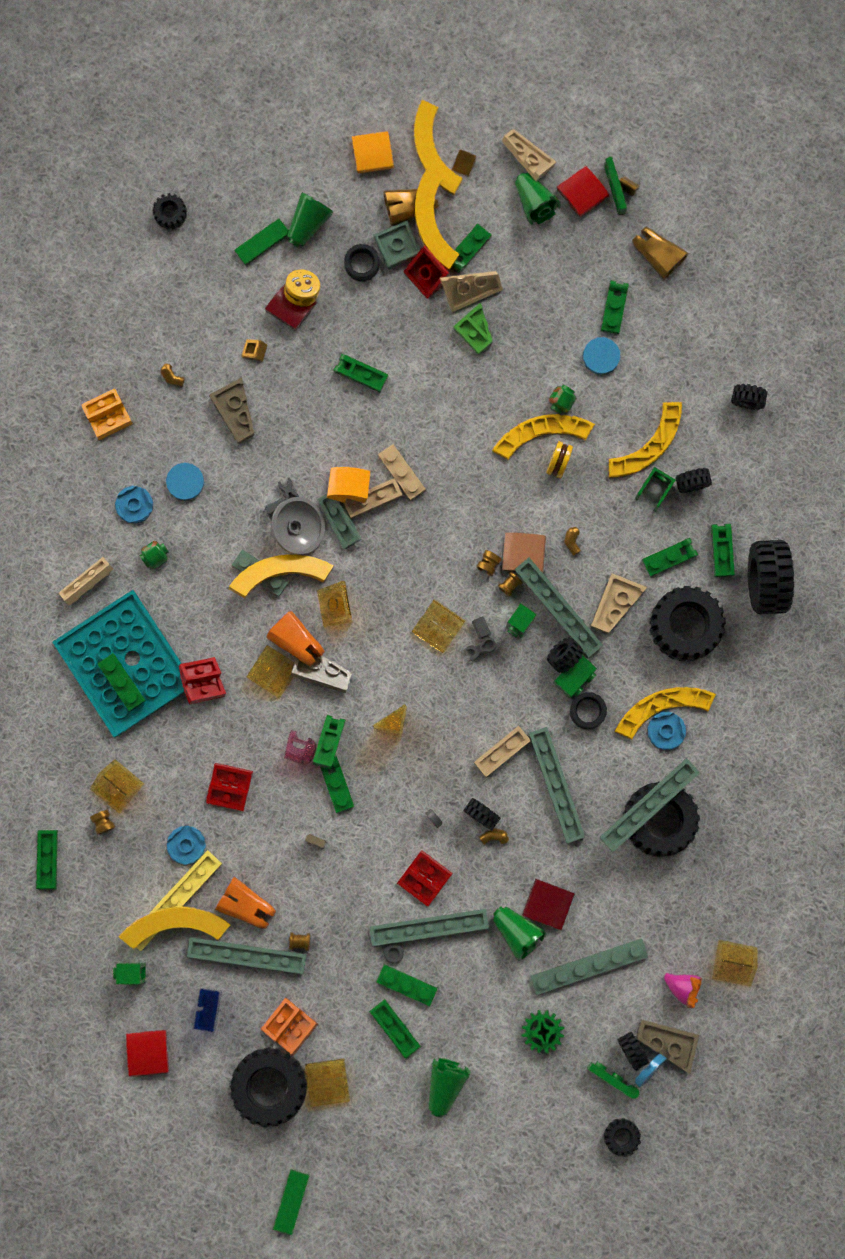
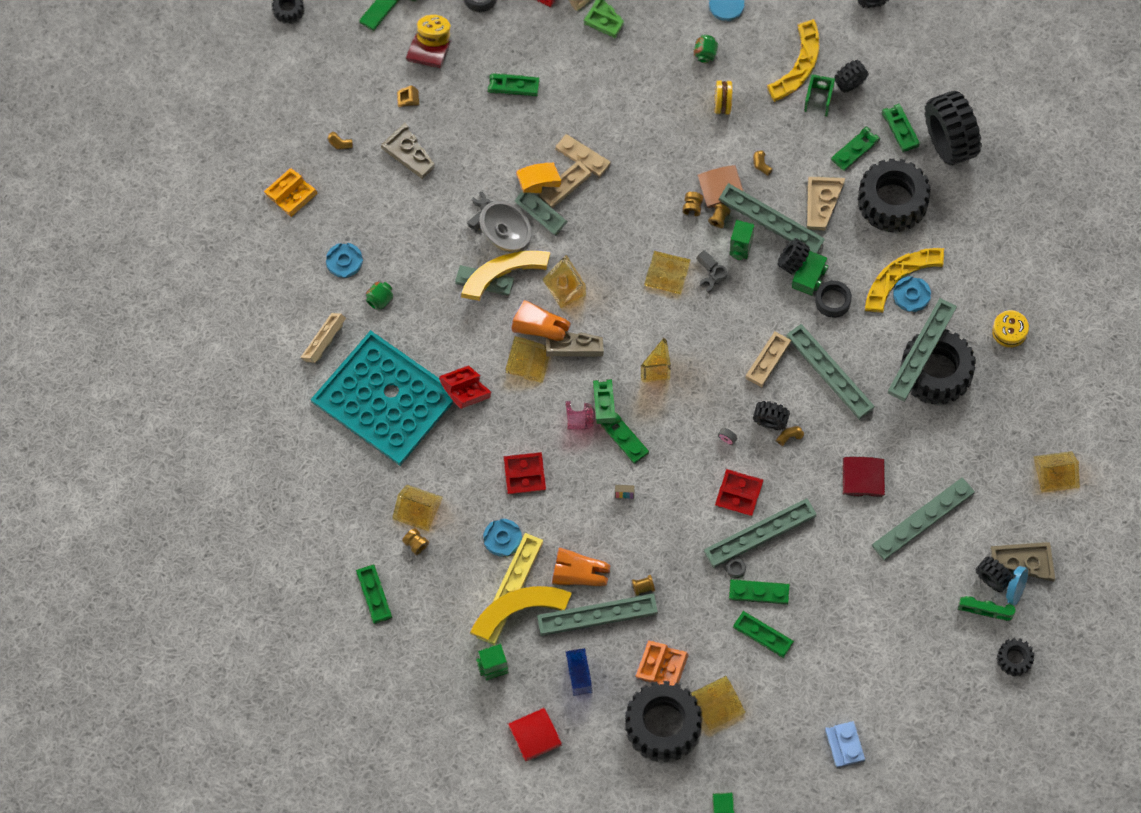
camera: 15 degrees left, 15 degrees down
(121, 682) = (389, 411): green plate -> none
(185, 481) = (385, 225): dark azure tile -> none
(430, 1164) = (845, 744): none -> light blue plate
(445, 1085) = (831, 665): green cone -> none
(518, 932) = (846, 507): green cone -> none
(534, 1032) = (905, 579): green gear -> none
(541, 426) = (695, 78): yellow tile -> none
(684, 987) = (1019, 505): dark pink hat -> none
(747, 802) = (1010, 328): none -> yellow head

